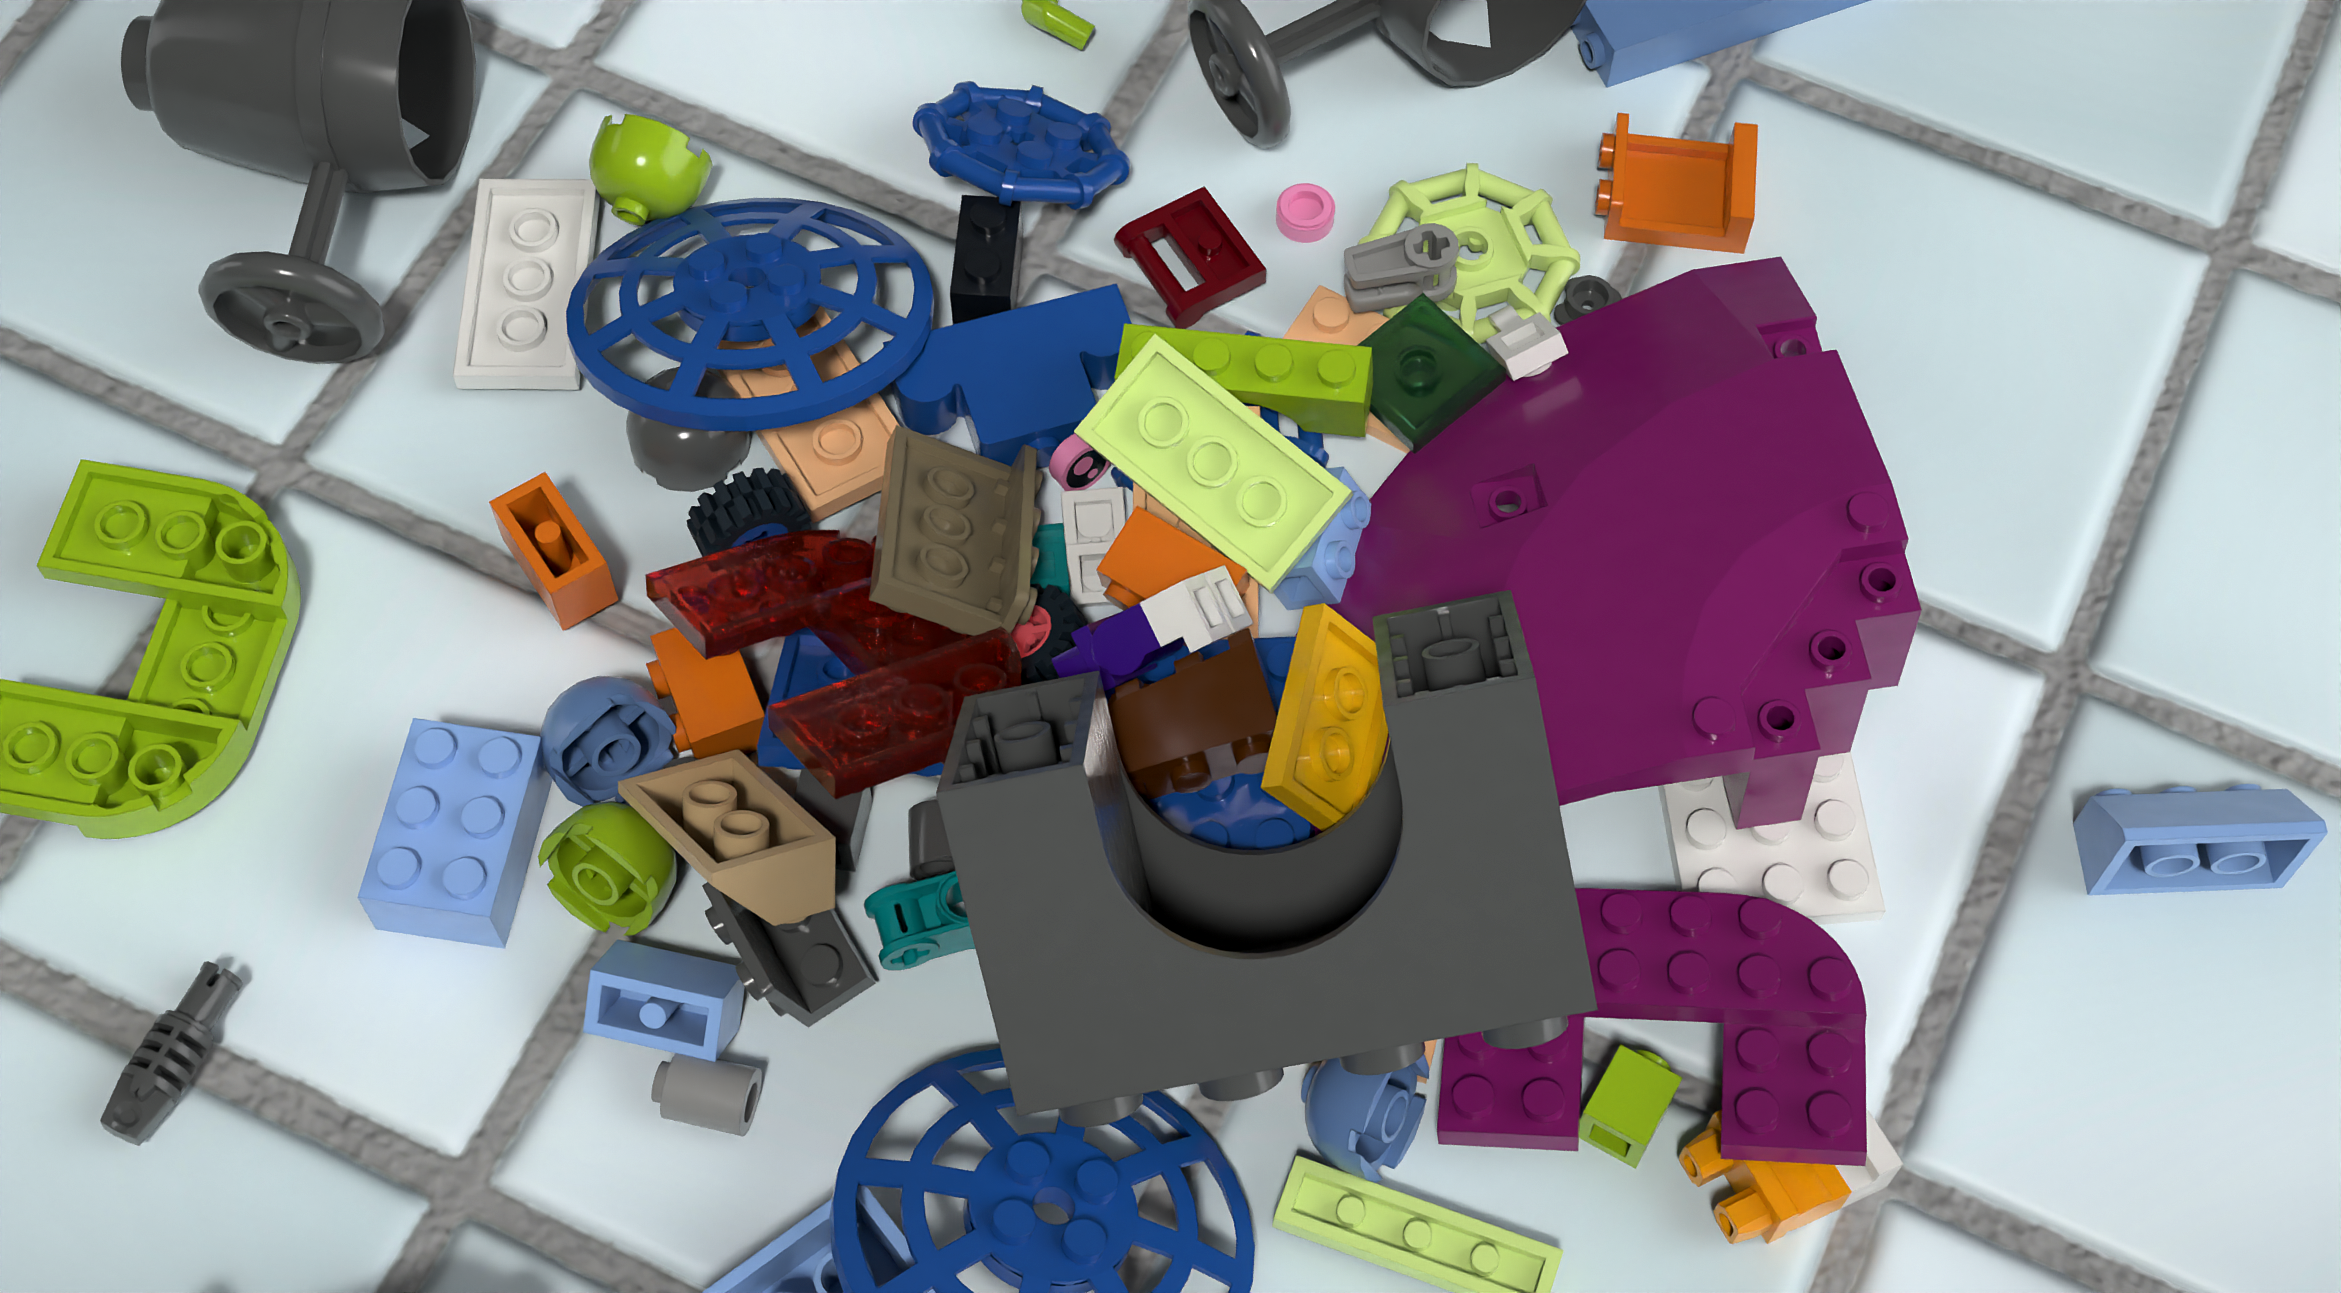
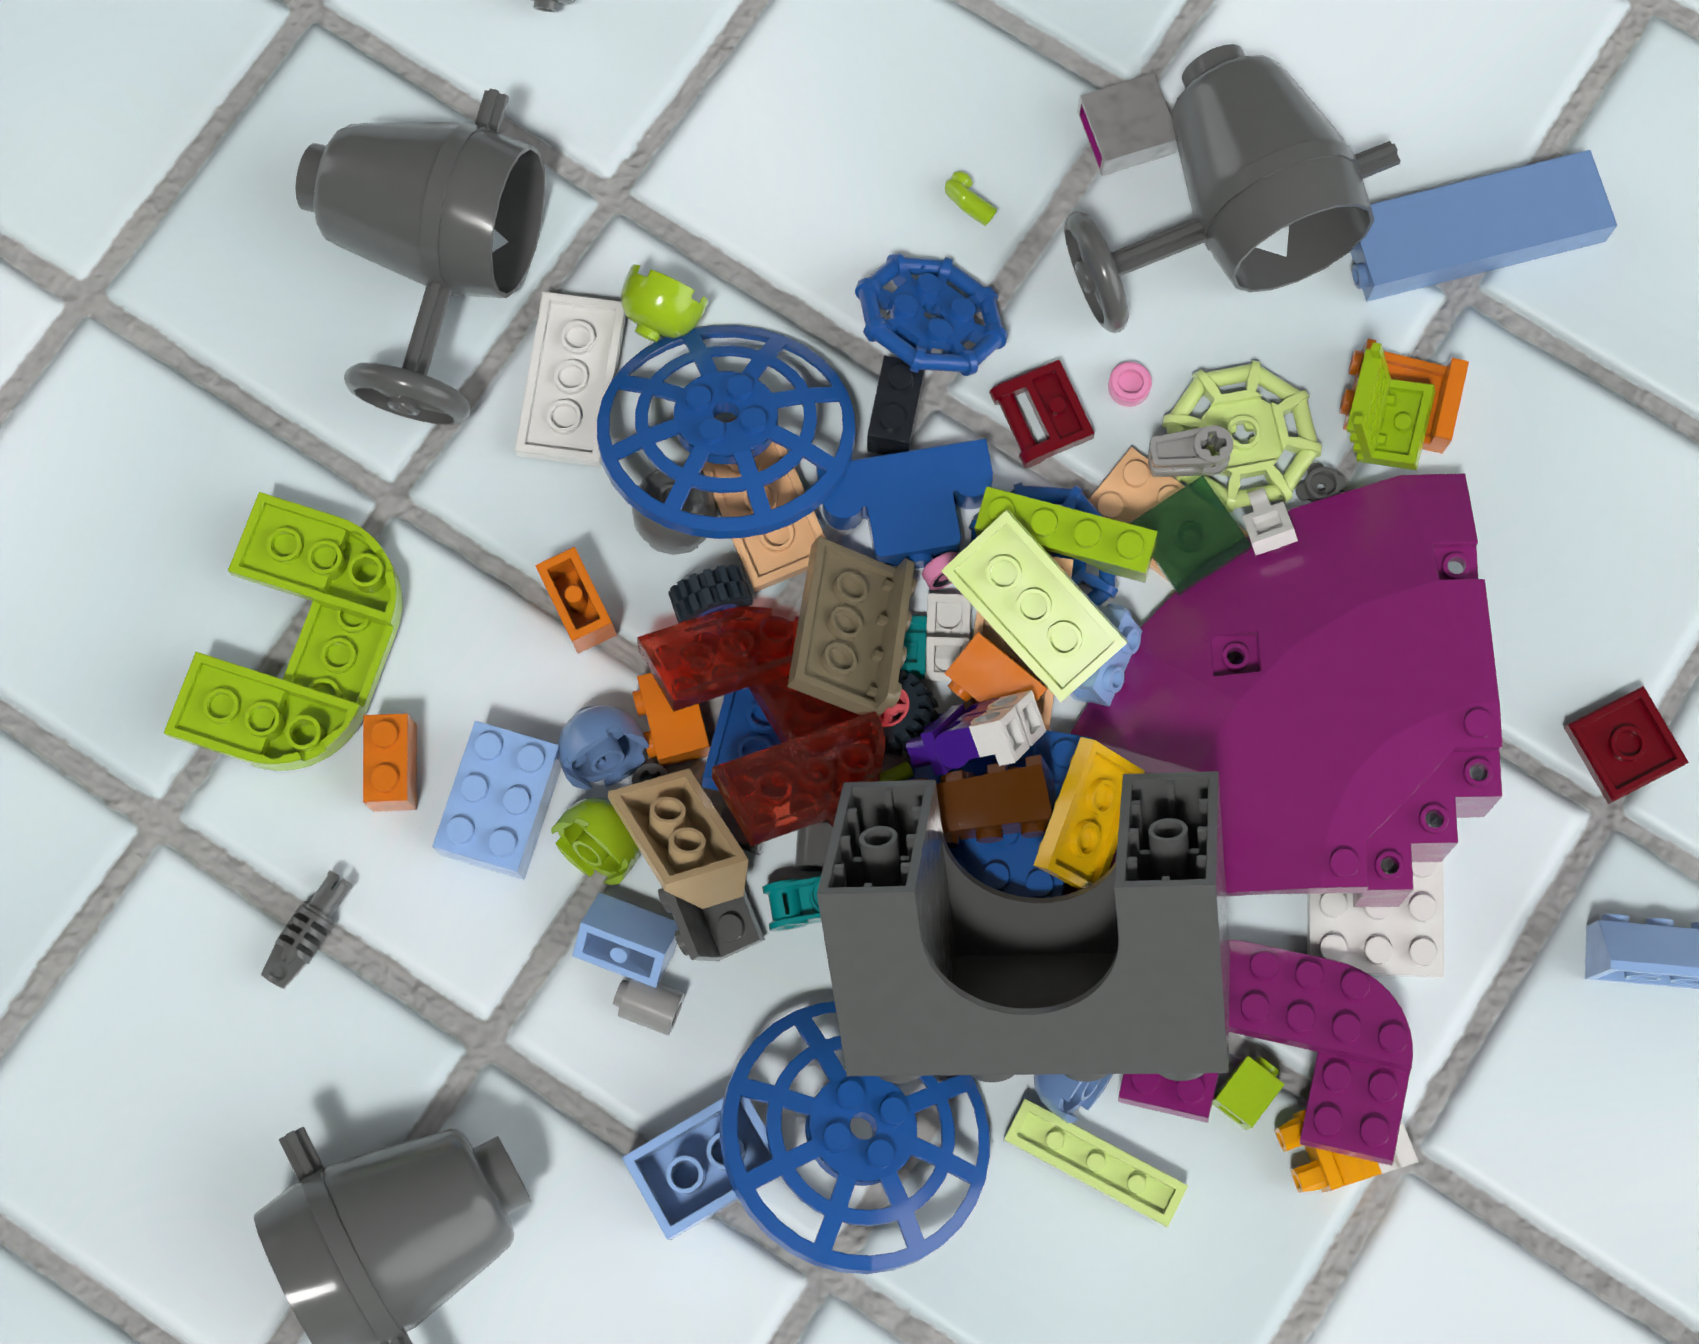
camera: 10 degrees right, 15 degrees up
(290, 800) = (389, 762): none -> orange brick
(1661, 201) = (1388, 415): none -> lime plate
(2074, 576) = (1626, 745): none -> dark red plate

